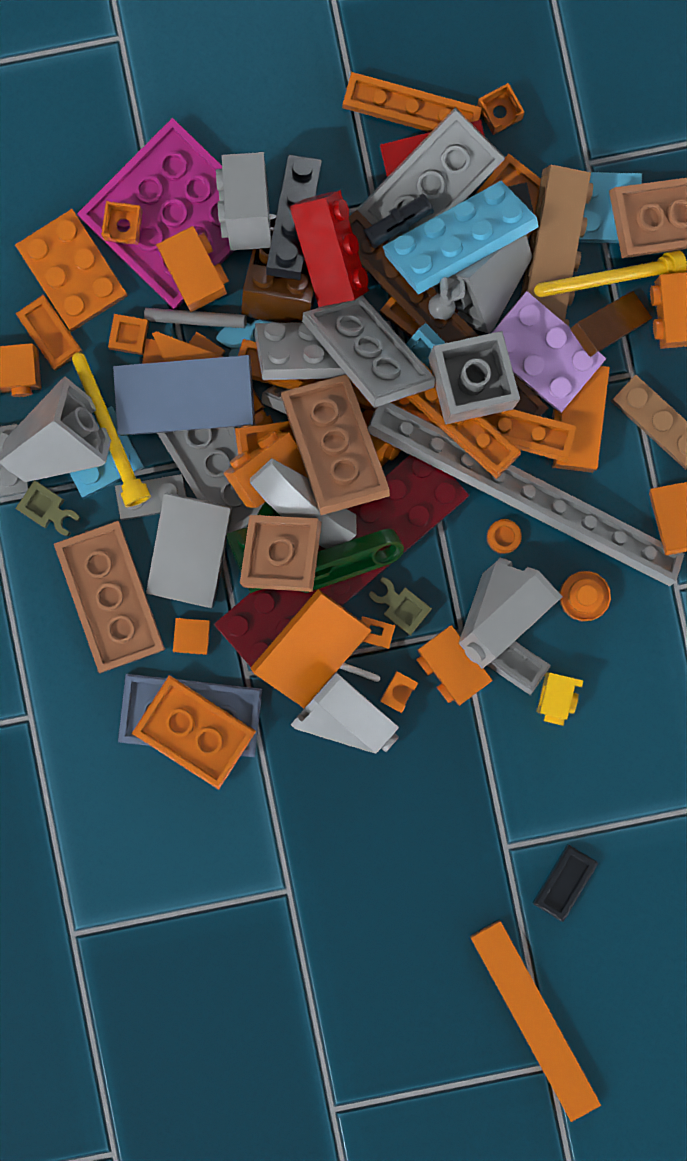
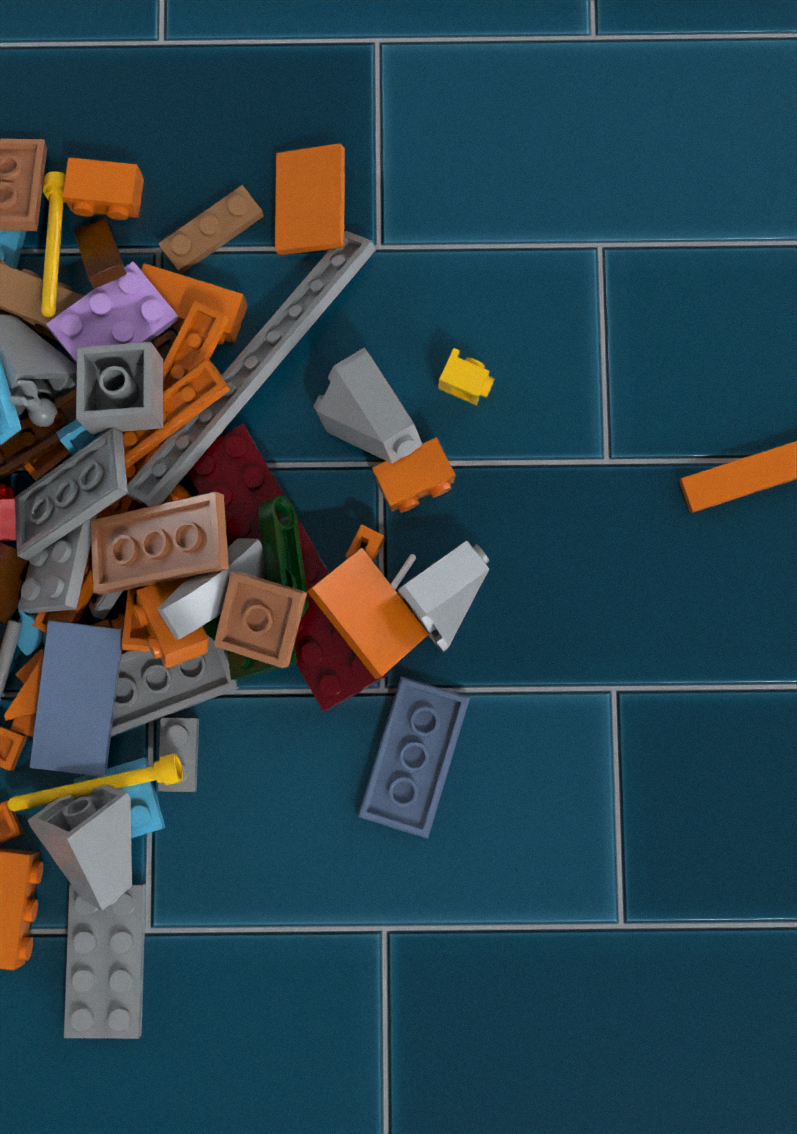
camera: 80 degrees left, 5 degrees down
(44, 506) = (164, 871): olive plate -> none
(109, 597) = (273, 819): nougat plate -> none
(189, 550) = (241, 724): light grey tile -> none
(191, 636) = (332, 739): orange tile -> none
(194, 732) = (432, 755): orange tile -> none
(398, 691) = (429, 537): orange piece -> none
(404, 609) = (345, 515): olive plate -> none
(504, 536) = (293, 403): orange tile -> none
(520, 667) = (430, 408): light grey plate -> none
(565, 883) = (652, 408): black tile -> none
(585, 596) = (371, 330): orange plate -> none

